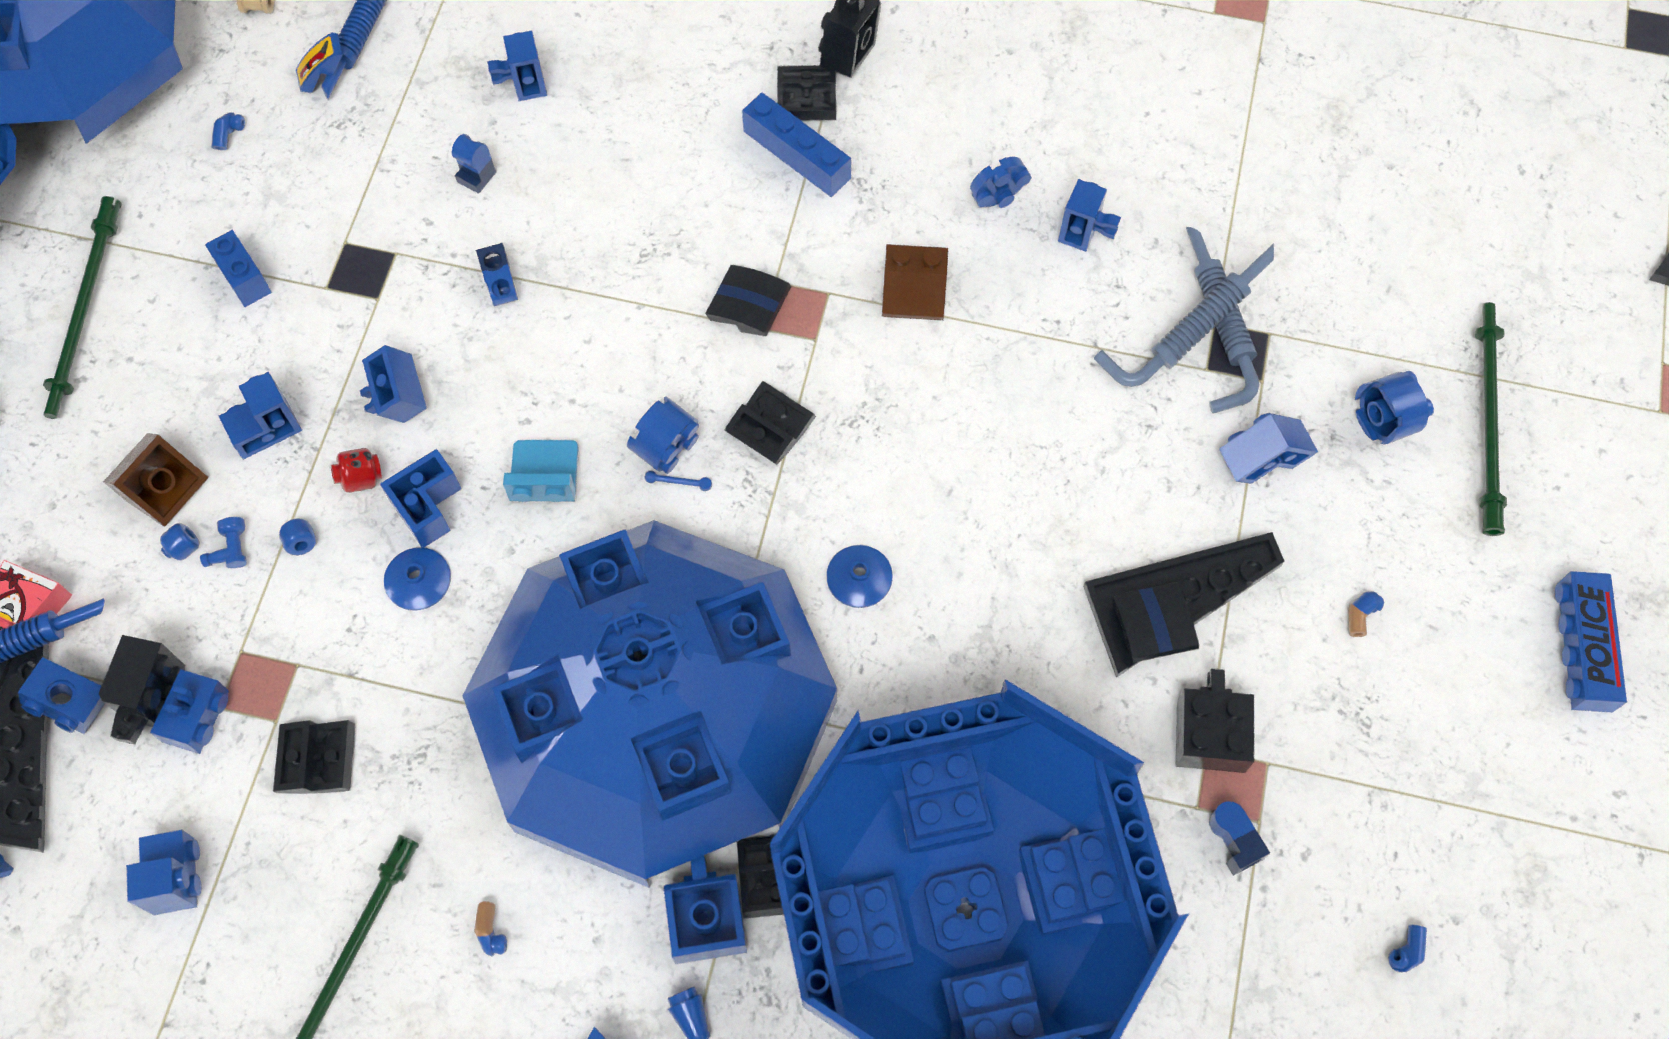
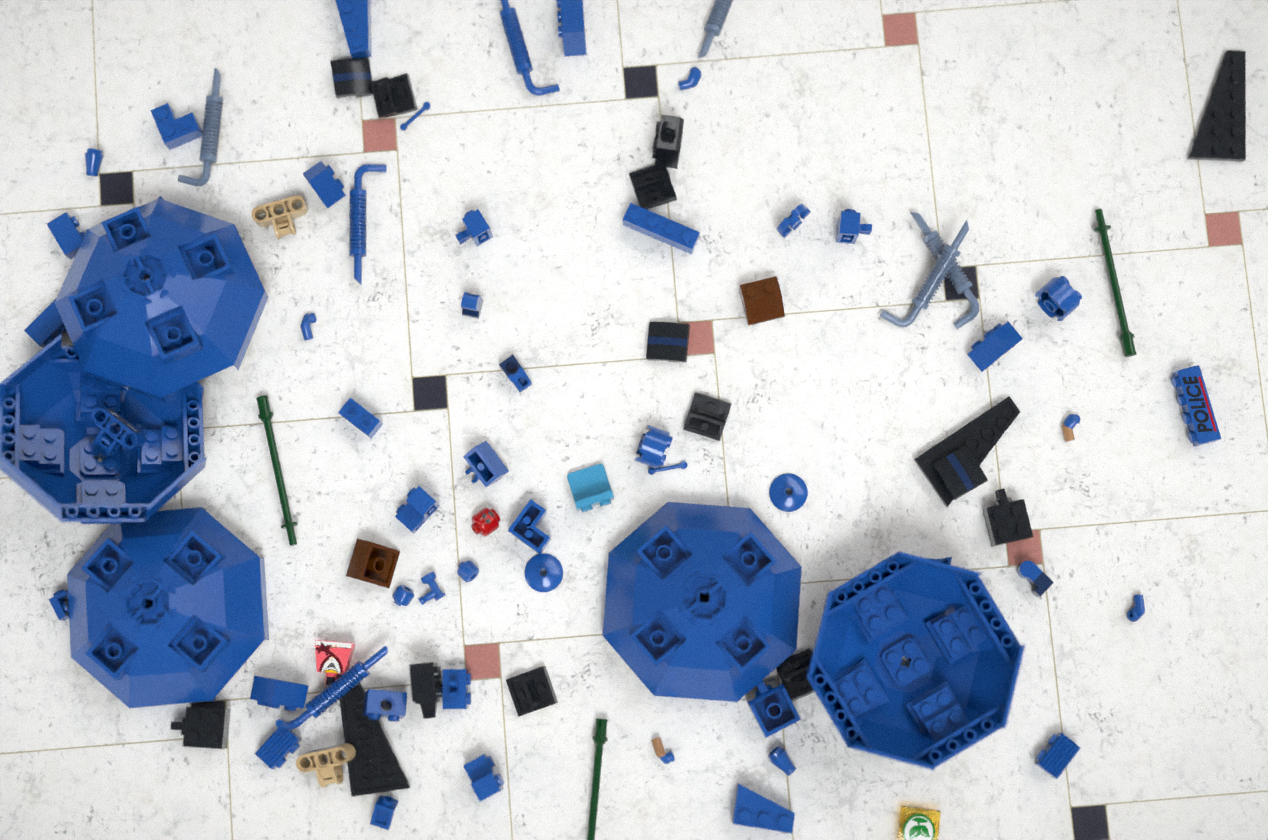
camera: 15 degrees left, 15 degrees up
(319, 59) = (347, 263): slope -> none

